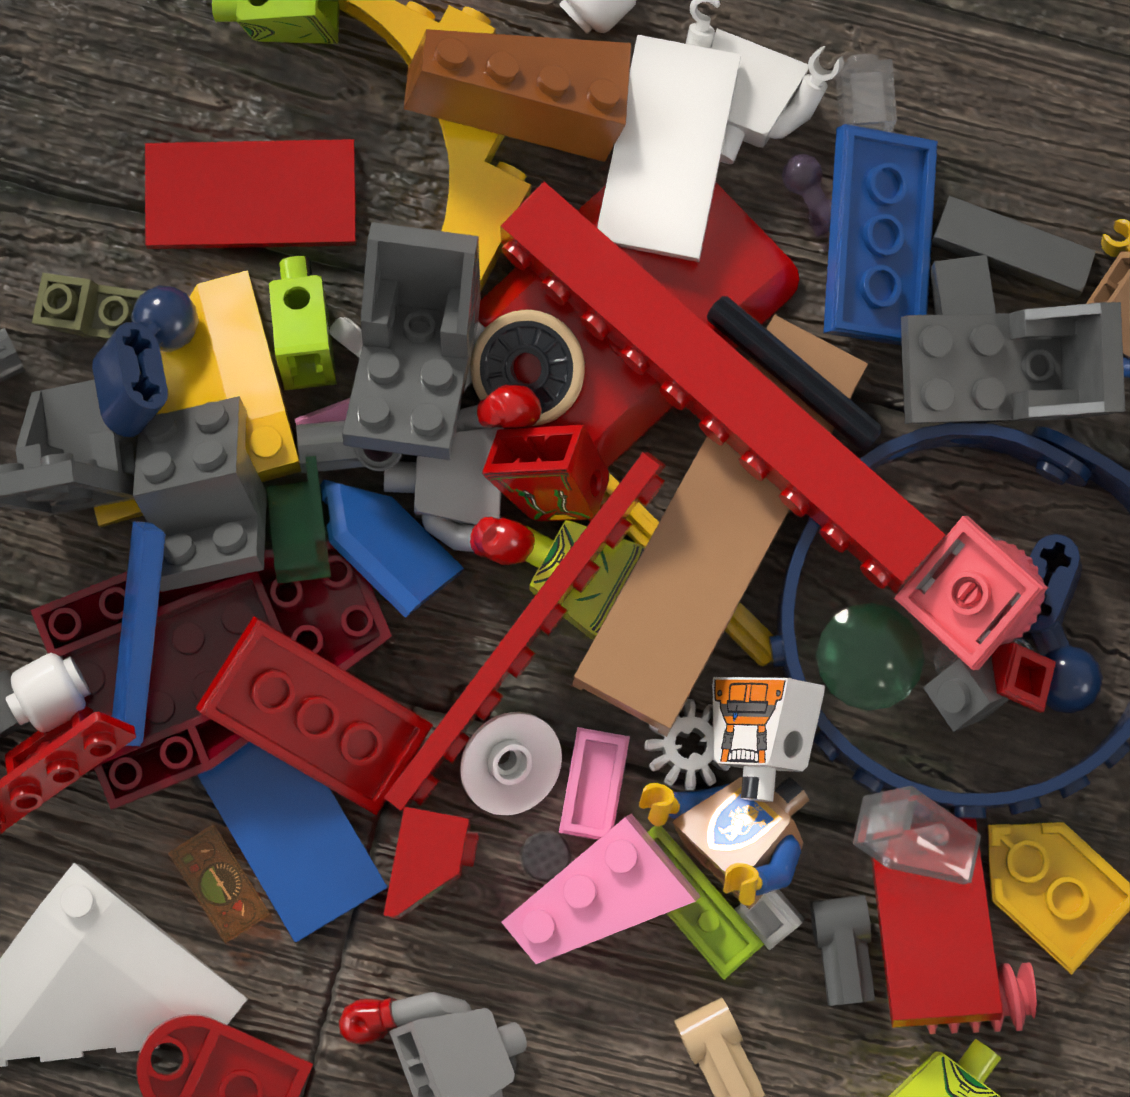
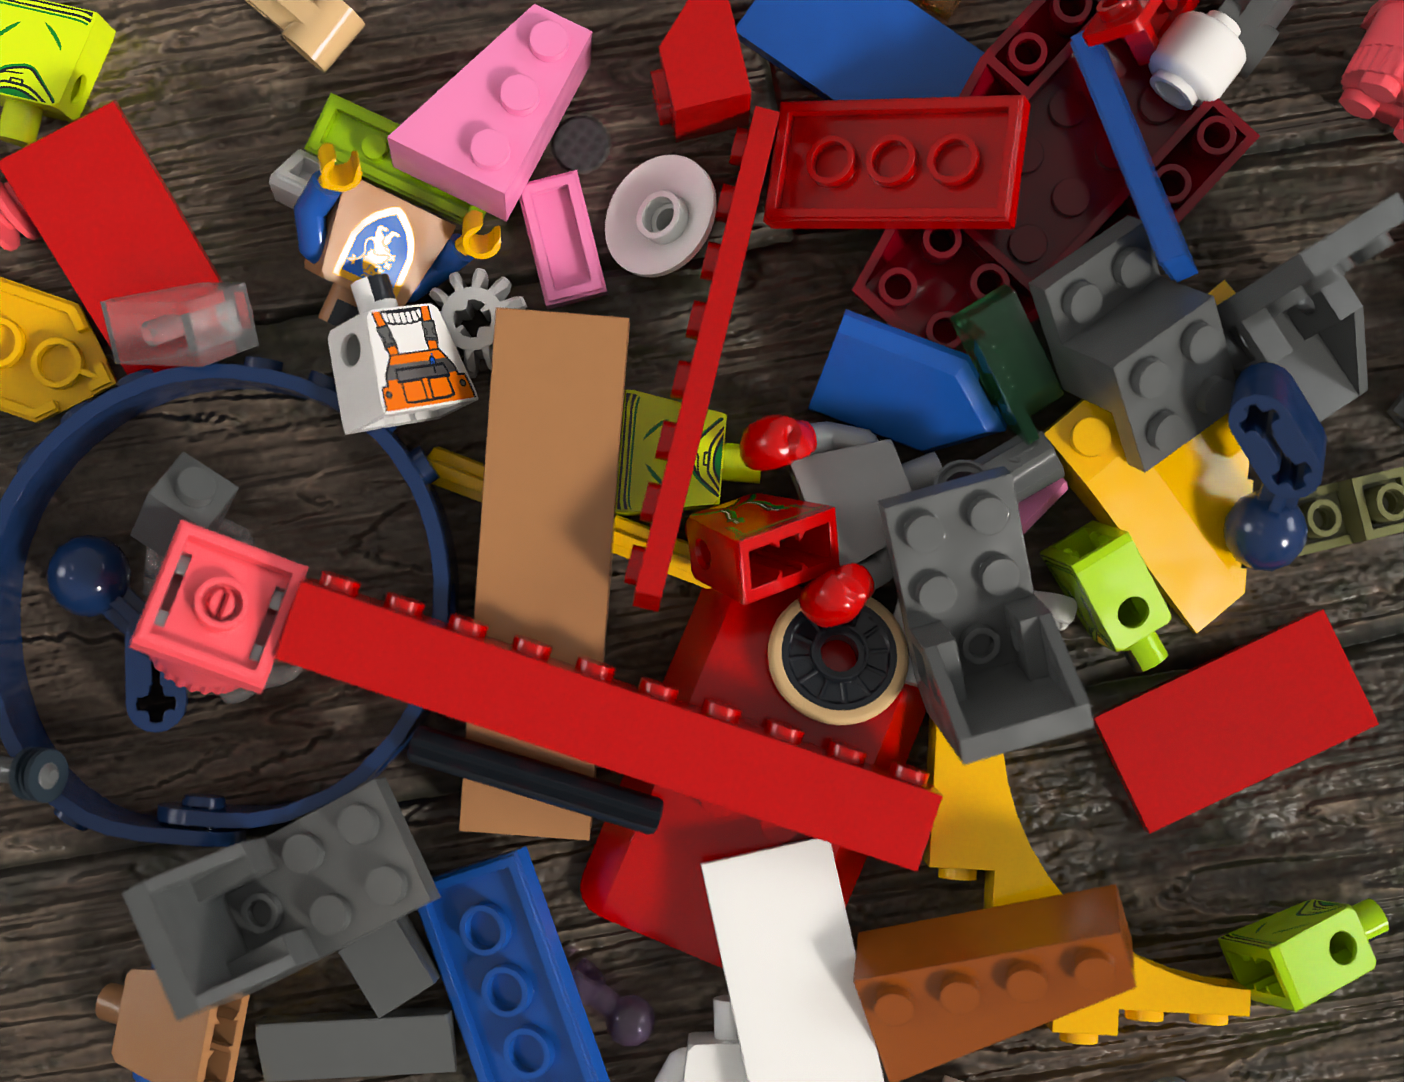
camera: 160 degrees right, 5 degrees up
(843, 935) = (221, 191): dark grey piece -> none
(870, 656) = (313, 496): clear green dish -> none
(1022, 675) = (129, 546): red slope -> none

